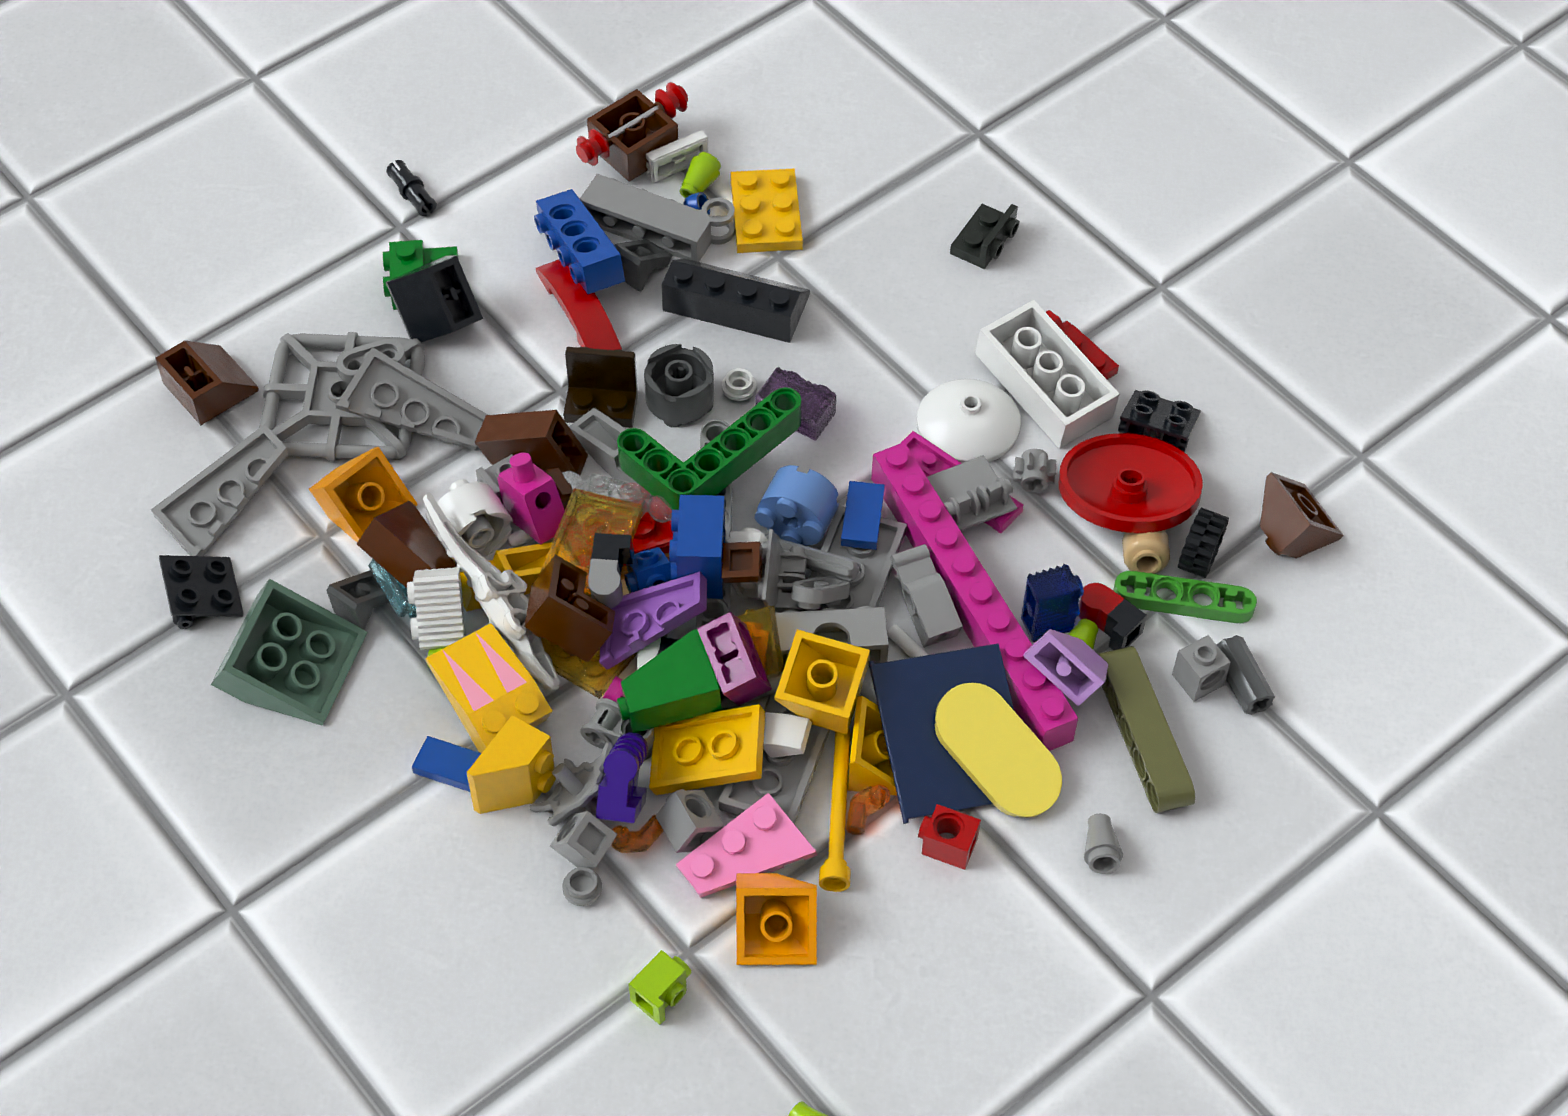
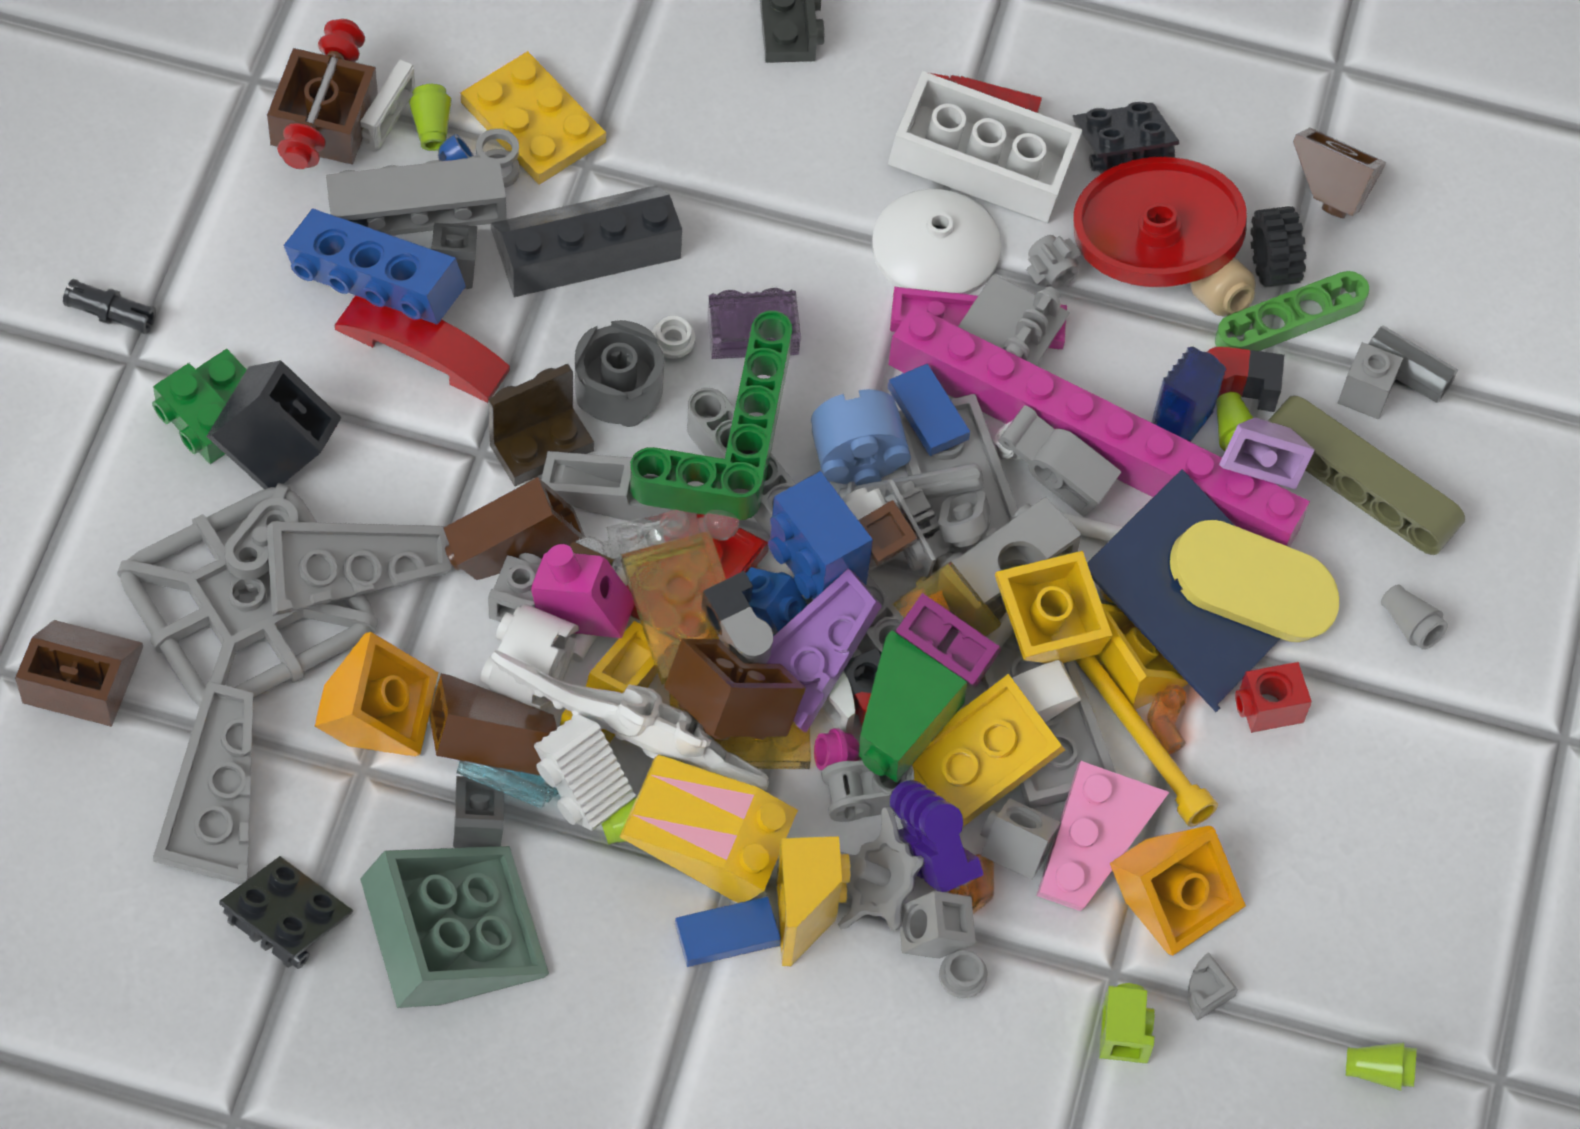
camera: 40 degrees left, 5 degrees up
(742, 1001) = (1209, 987): none -> light grey tile

